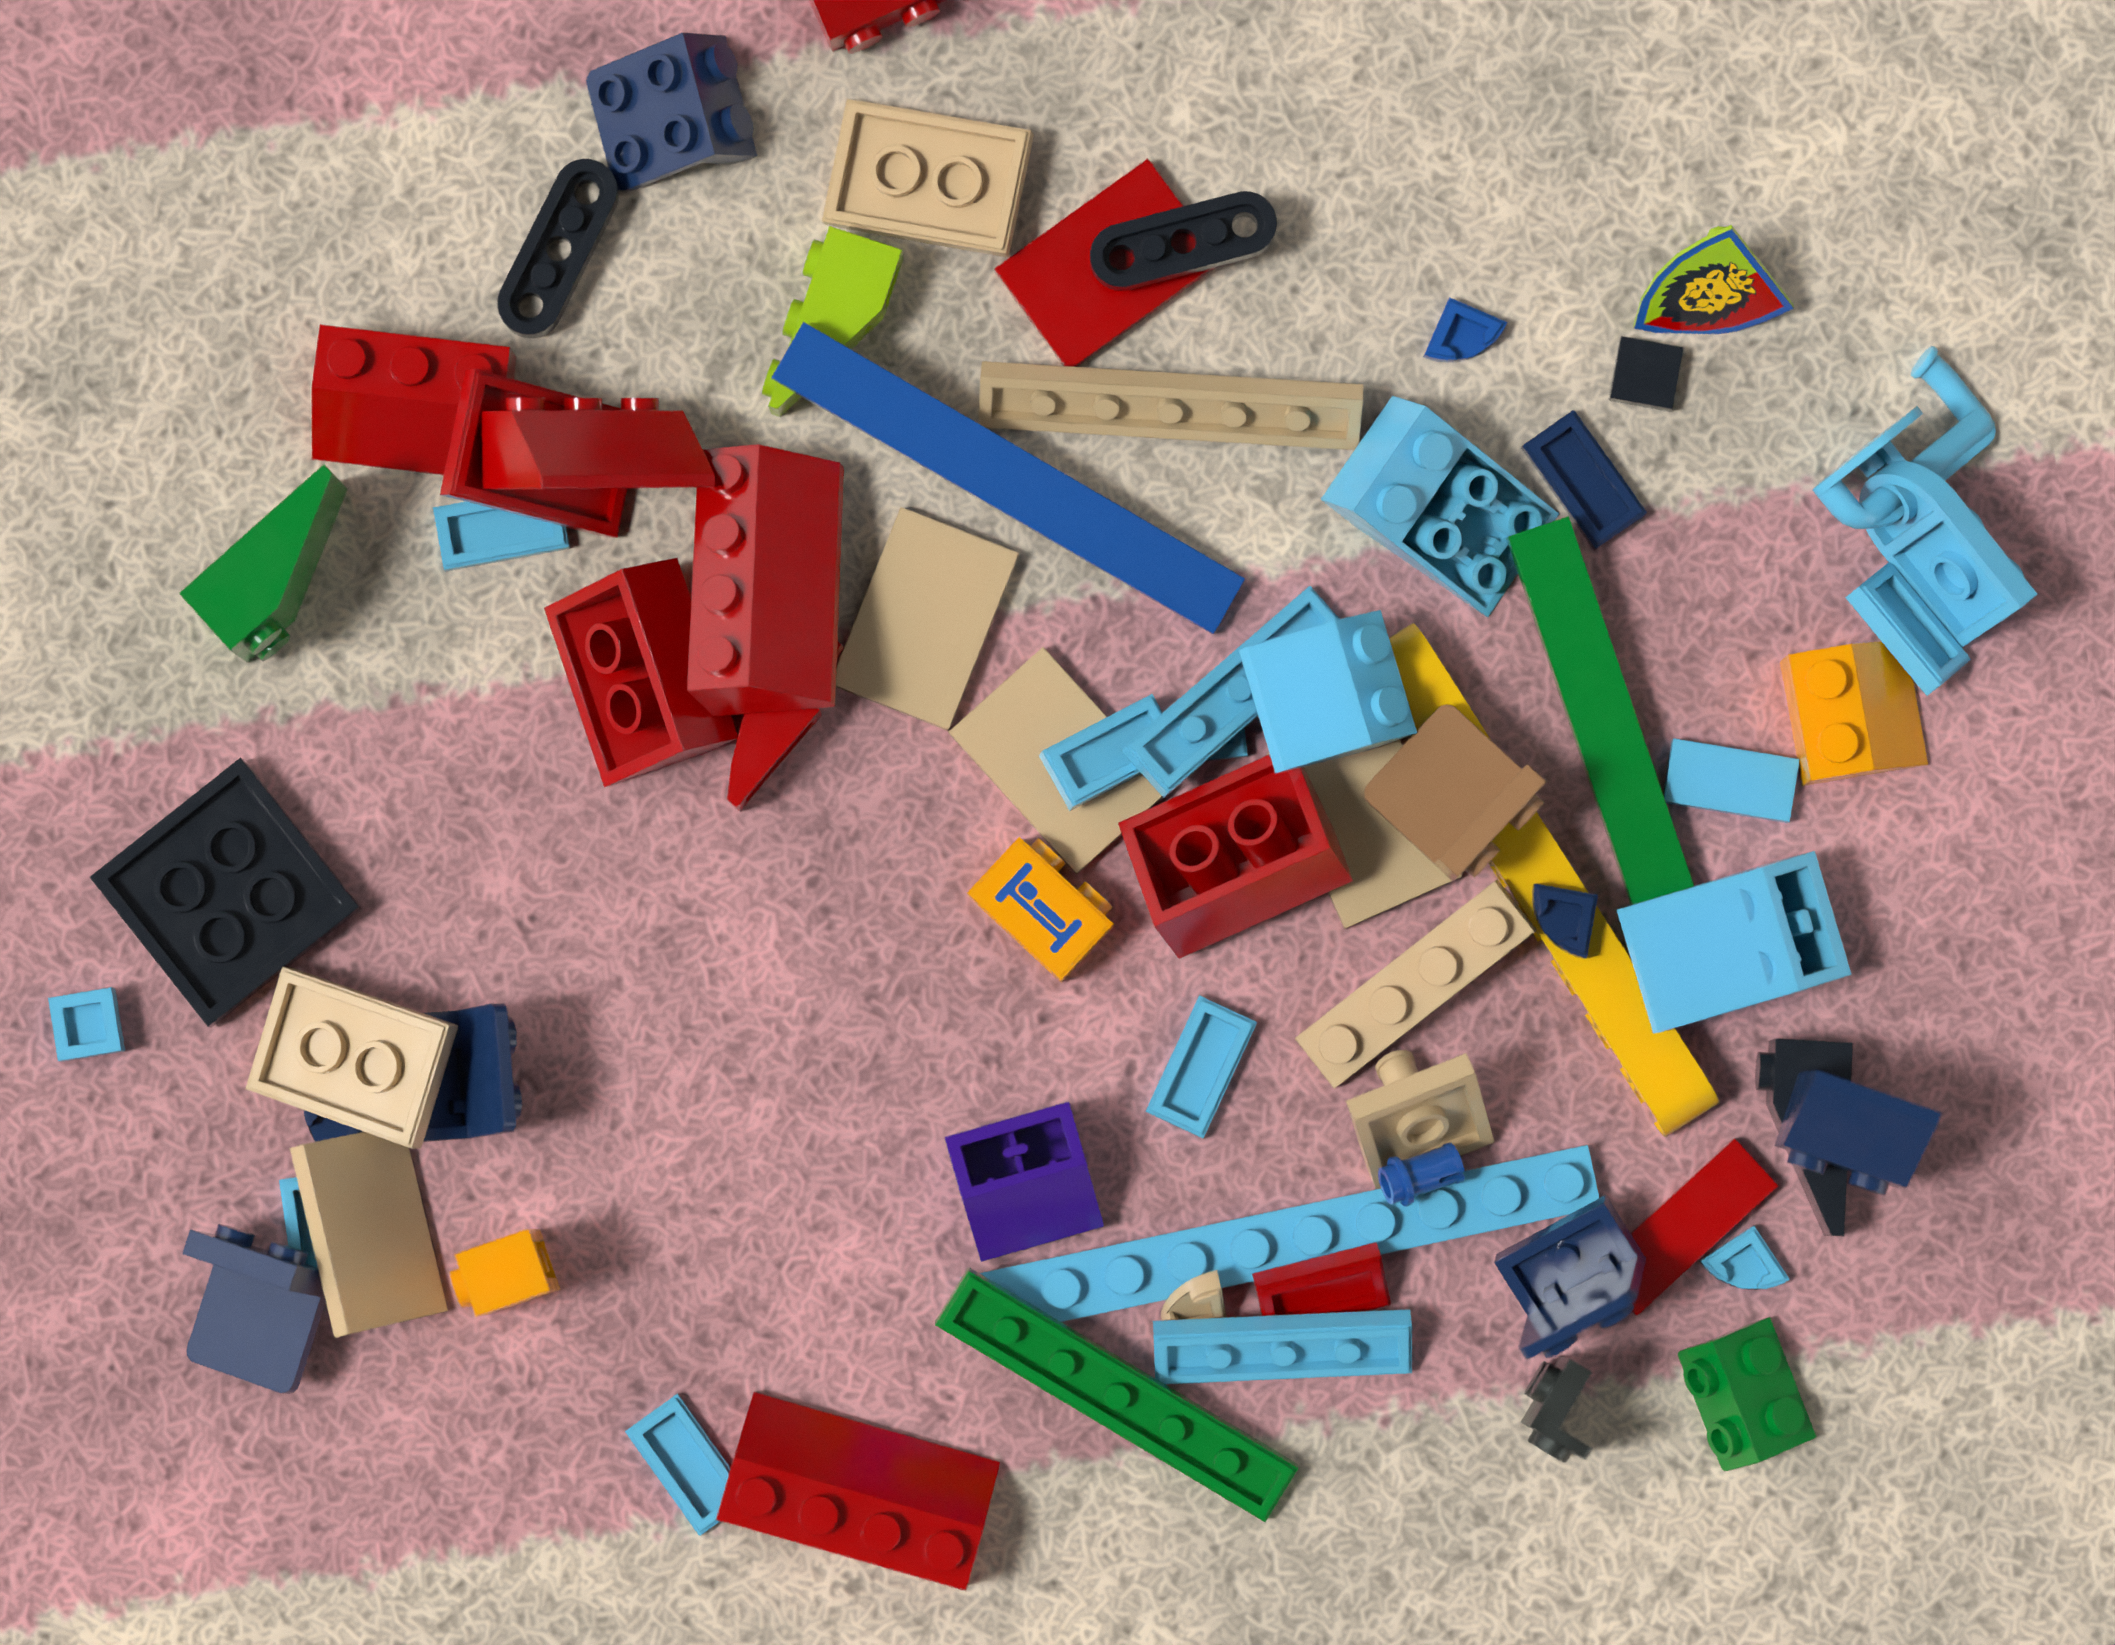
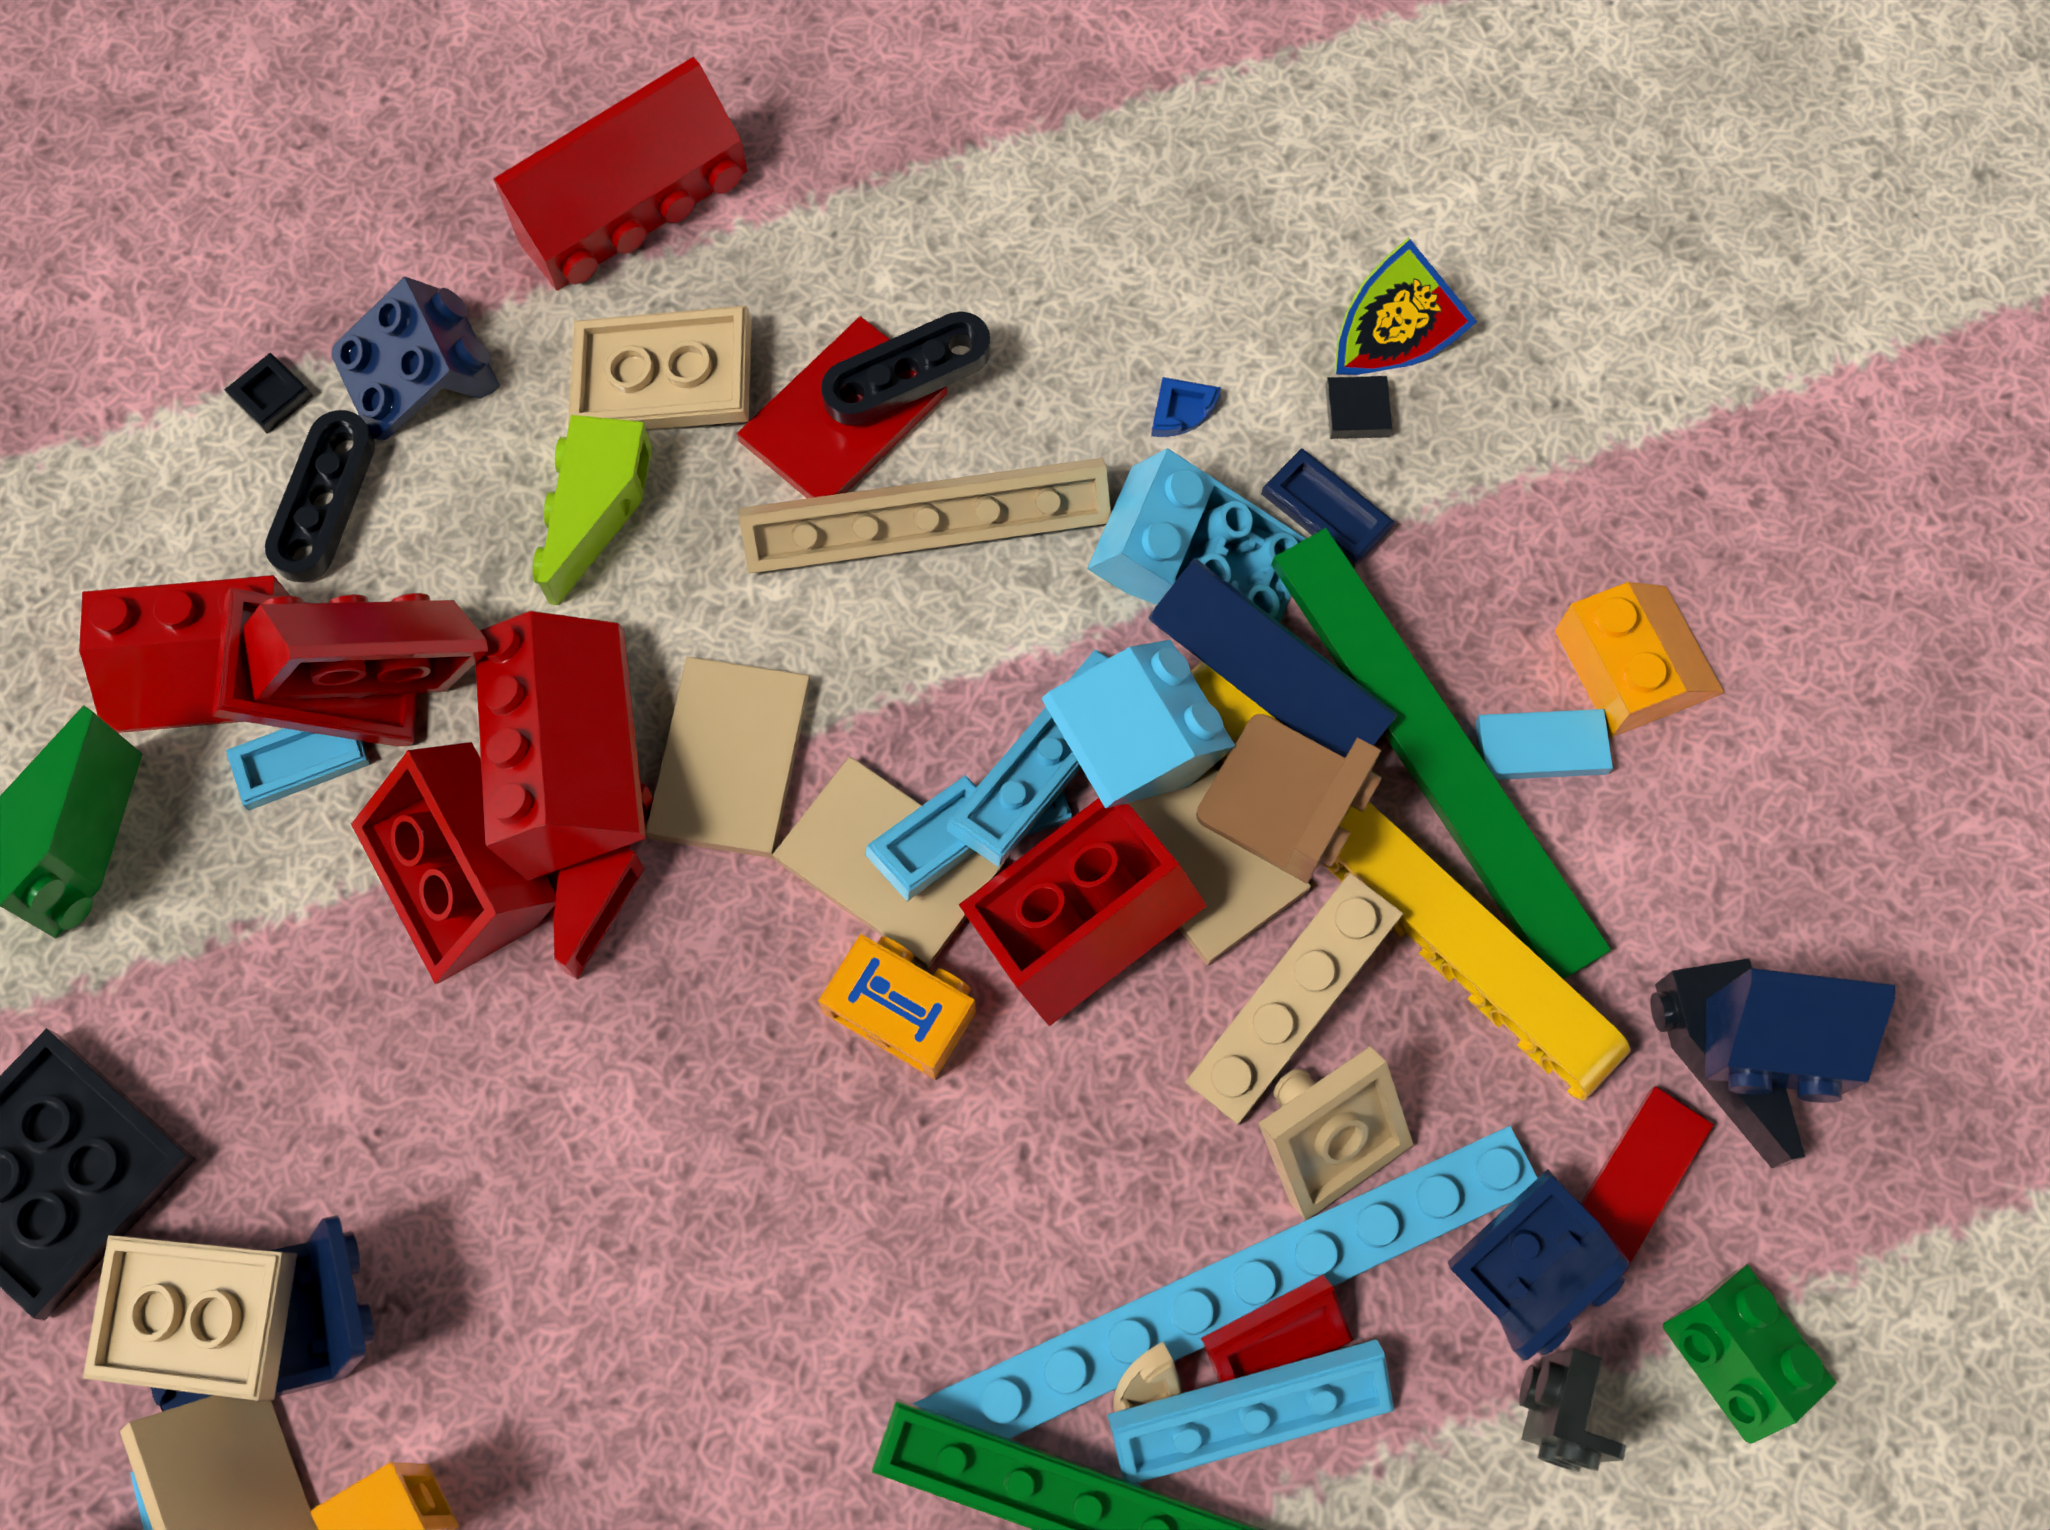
camera: 15 degrees left, 15 degrees down
(516, 113) = (268, 392): none -> black tile
(1007, 478) = (781, 603): blue tile -> none
(1024, 1181) = (937, 1290): dark purple slope -> none
(1201, 1067) = (1096, 1134): medium azure tile -> none
(1420, 1174) = (1339, 1197): blue pin -> none
(1474, 653) = (1269, 662): none -> dark blue slope
(1565, 917) = (1428, 895): dark blue tile -> none
(1734, 942) = (1603, 882): medium azure slope -> none
(1745, 1262) = (1703, 1213): medium azure tile -> none
(1908, 628) = (1668, 570): medium azure tile -> none
(1924, 522) = (1668, 469): medium azure plate -> none

